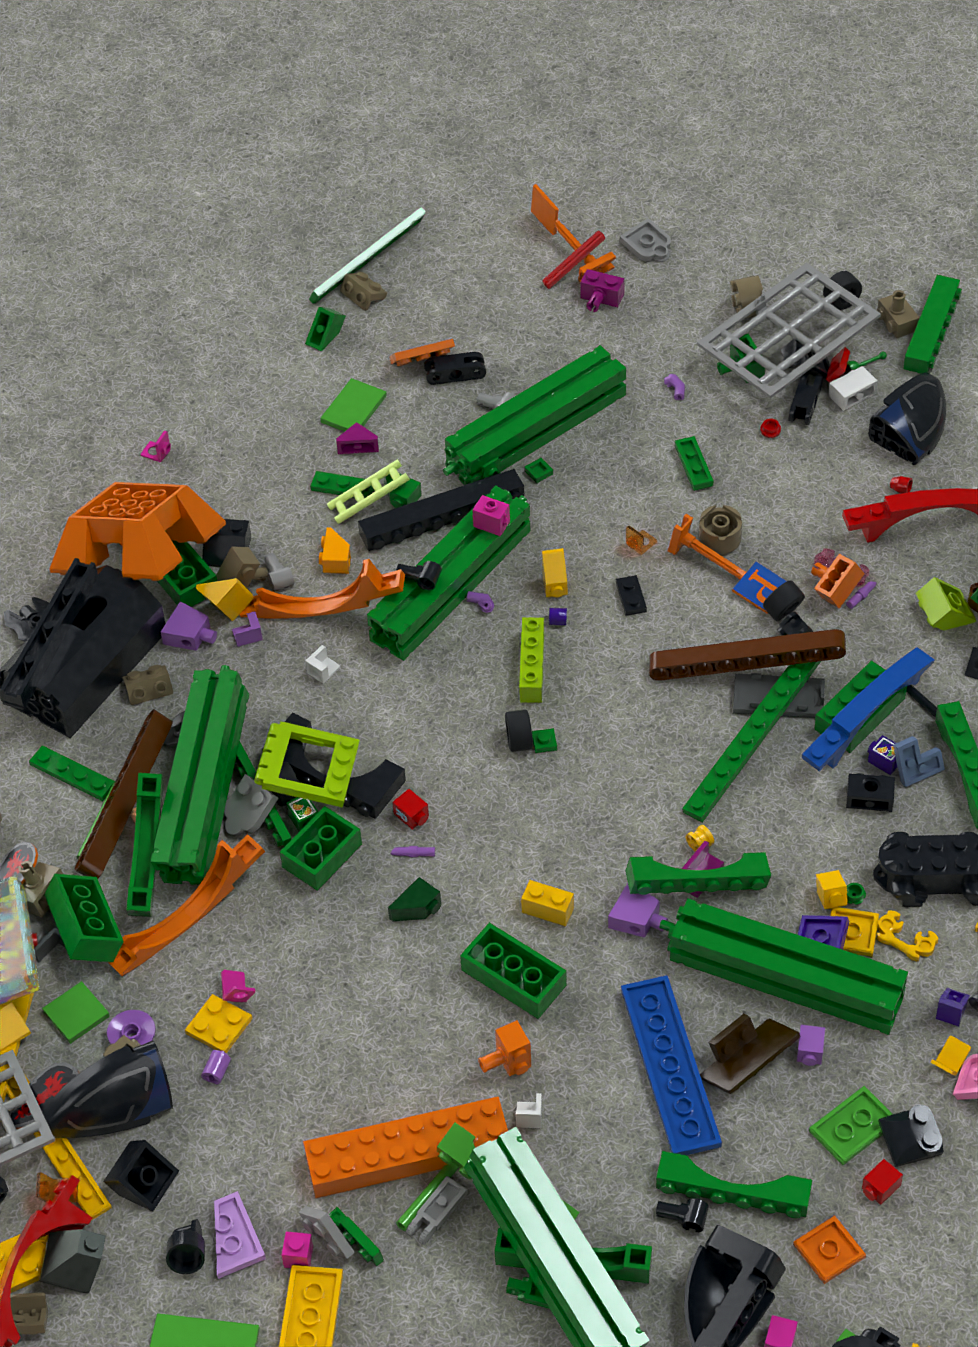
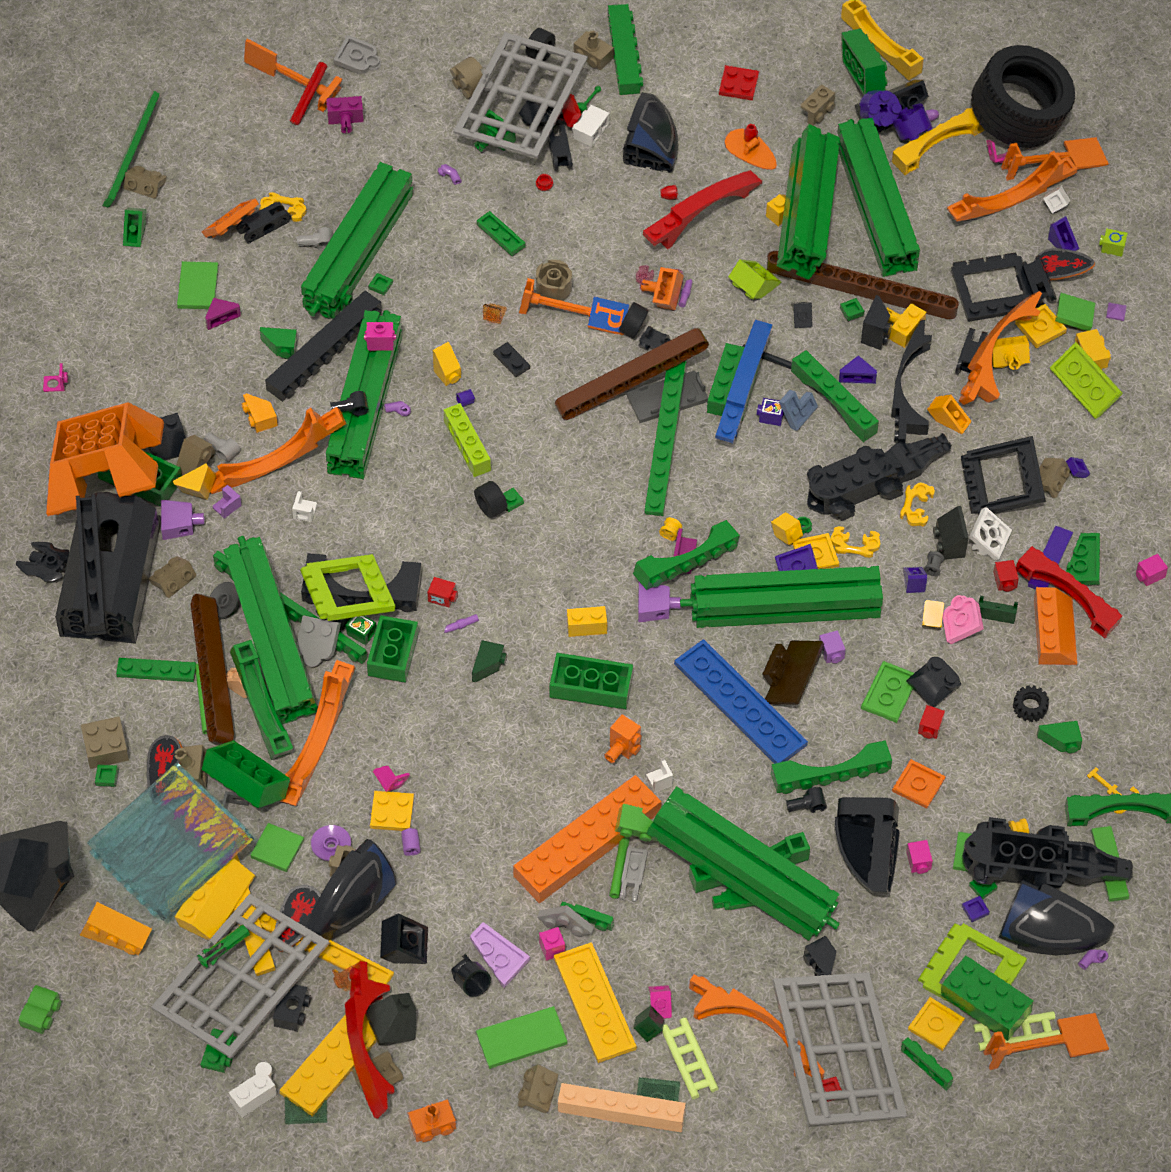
camera: 30 degrees left, 5 degrees up
(336, 483) = (230, 354): green plate -> none
(379, 492) = (258, 363): yellowish green bar -> none
(493, 370) = (298, 208): none -> yellow helmet
(860, 796) = (775, 444): black brick -> none

